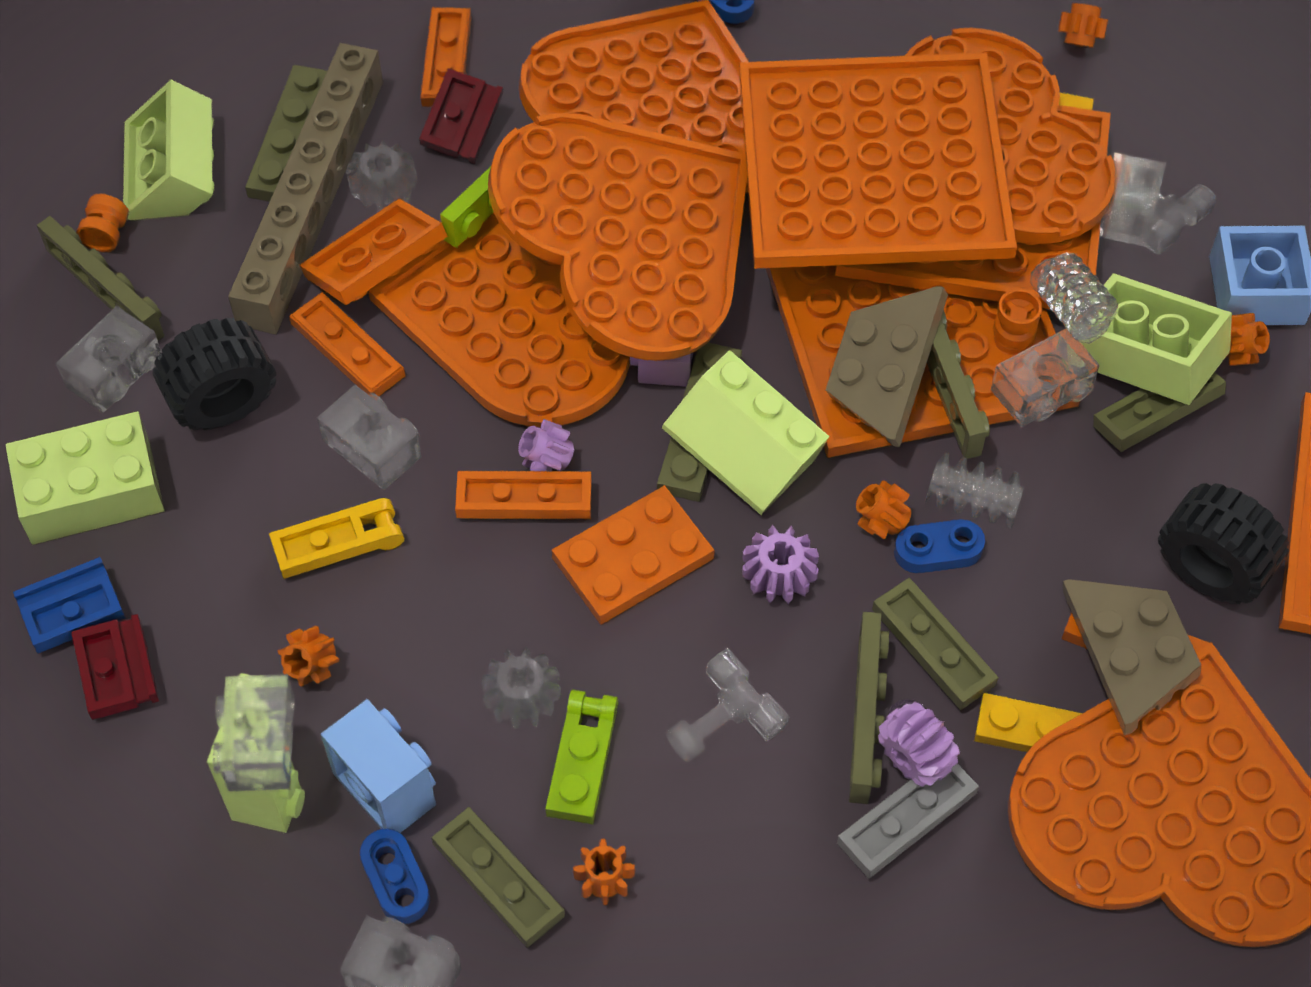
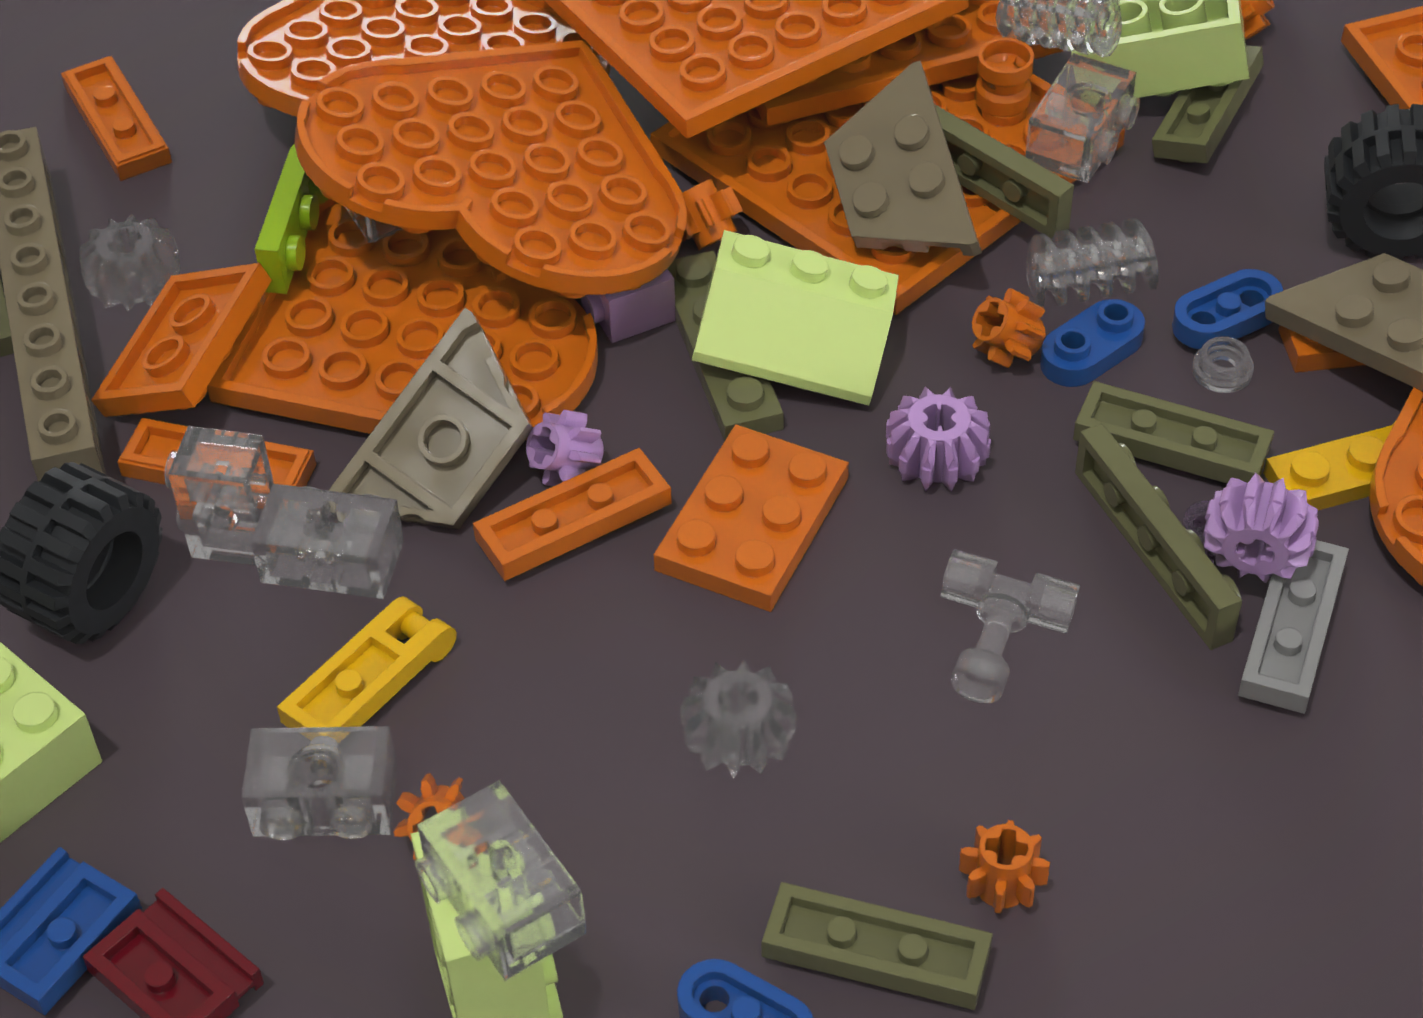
camera: 30 degrees left, 10 degrees down
(249, 575) = (289, 764): none -> clear brick
(318, 371) = (219, 491): none -> clear brick
(380, 767) = (646, 888): light blue brick -> none
(461, 116) = (186, 161): dark red plate -> none
(475, 401) = (443, 433): none -> dark tan wing
(581, 758) = (869, 762): lime plate -> none
(751, 321) = (709, 213): none -> orange gear
(1013, 600) = (1223, 365): none -> clear plate
(1043, 569) = (1224, 307): none -> blue plate

